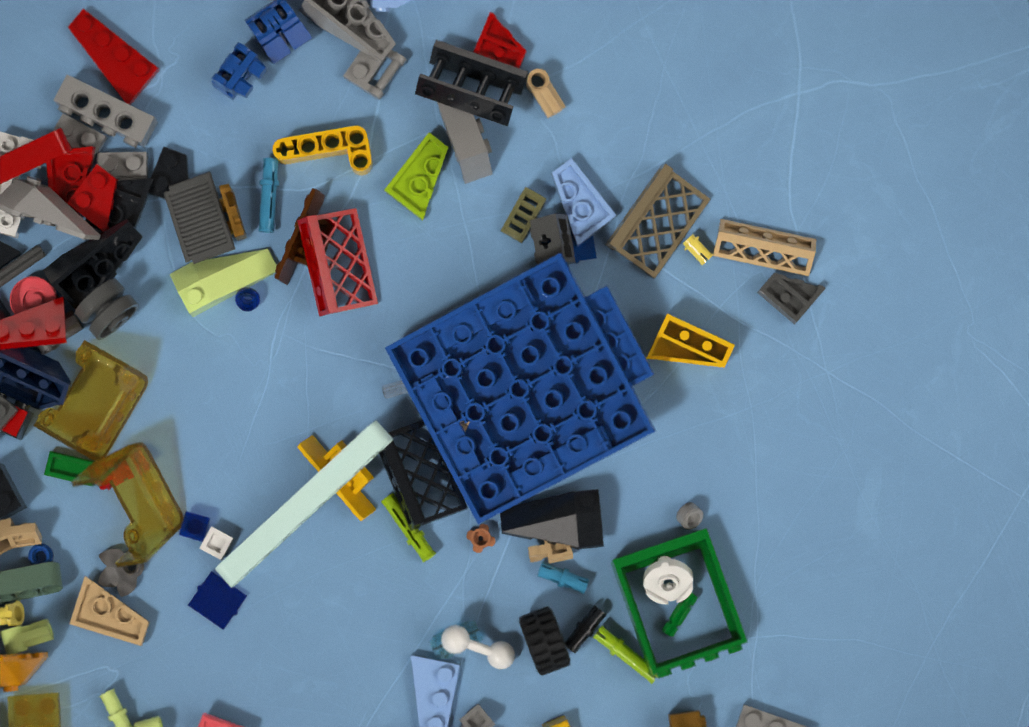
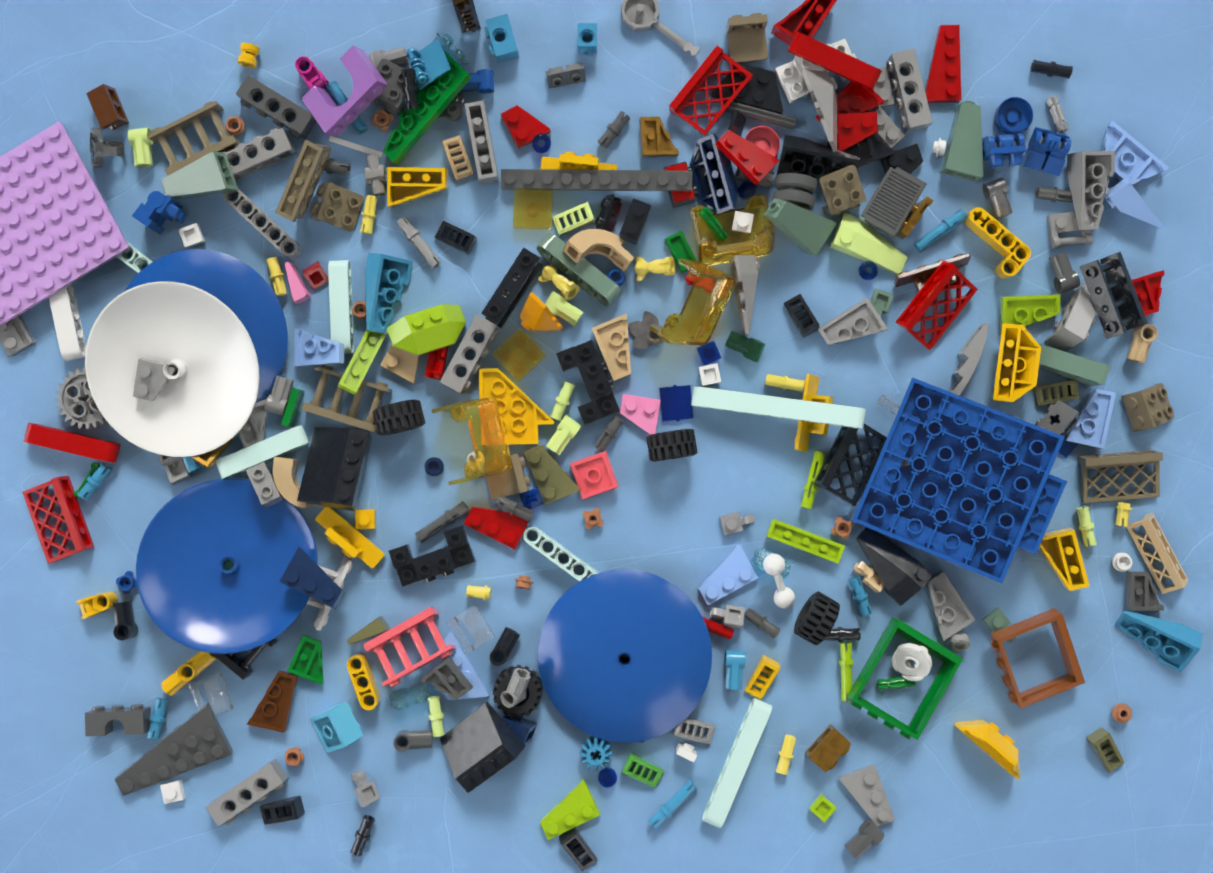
camera: 45 degrees right, 5 degrees up
(64, 506) = (665, 266): none -> light yellow animal
(66, 353) = (747, 190): none -> clear blue plate
(70, 414) = (713, 224): none -> green axle
(94, 383) = (742, 222): none -> white plate
(123, 663) = (595, 380): none -> black bracket
(144, 261) = (842, 190): none -> dark tan bracket
(148, 330) = (801, 226): none -> sand green slope
(152, 428) = (745, 272): none -> light grey wedge
(186, 127) = (939, 147): none -> white plate
(189, 695) = (609, 433): none -> dark grey axle
(196, 643) = (641, 411): none -> bright pink wing
(207, 104) = (964, 147): none -> sand green slope
(217, 29) = (1014, 115): none -> blue piece
(222, 482) = (750, 348): none -> clear green piece
(251, 642) = (671, 445): none -> black tyre
(256, 406) = (811, 318): none -> black slope
(277, 109) = (996, 193): none -> flat silver piece
(286, 358) = (853, 323): none -> light grey wing
(287, 475) = (784, 382): none -> light yellow axle
(289, 314) = (881, 301): none -> sand green plate
(327, 55) = (1053, 194): none -> dark grey axle
(384, 643) = (733, 522): none -> light grey plate
(415, 268) = (970, 354): none -> light grey slope
(417, 112) = (1065, 277): none -> dark grey piece
(458, 233) = (1016, 363): none -> yellow wedge
(462, 586) = (805, 541): none -> lime plate
(501, 184) = (1073, 367): none -> sand green slope
(507, 699) = (761, 622): none -> dark grey axle
(613, 136) = (1148, 407): none -> dark tan bracket
(645, 497) = (948, 606): none -> light grey wing
(679, 295) = (1086, 526): none -> yellowish green pin
(703, 461) = (997, 620): none -> sand green plate
(744, 289) = (1122, 562): none -> white plate
(818, 567) = (993, 743): none -> yellow wedge
(819, 434) = (1050, 688): none -> dark orange window
(854, 310) = (1169, 641): none -> dark azure wedge
(885, 414) = (1117, 709): none -> nougat plate
(902, 463) = (1100, 738): none -> olive slope

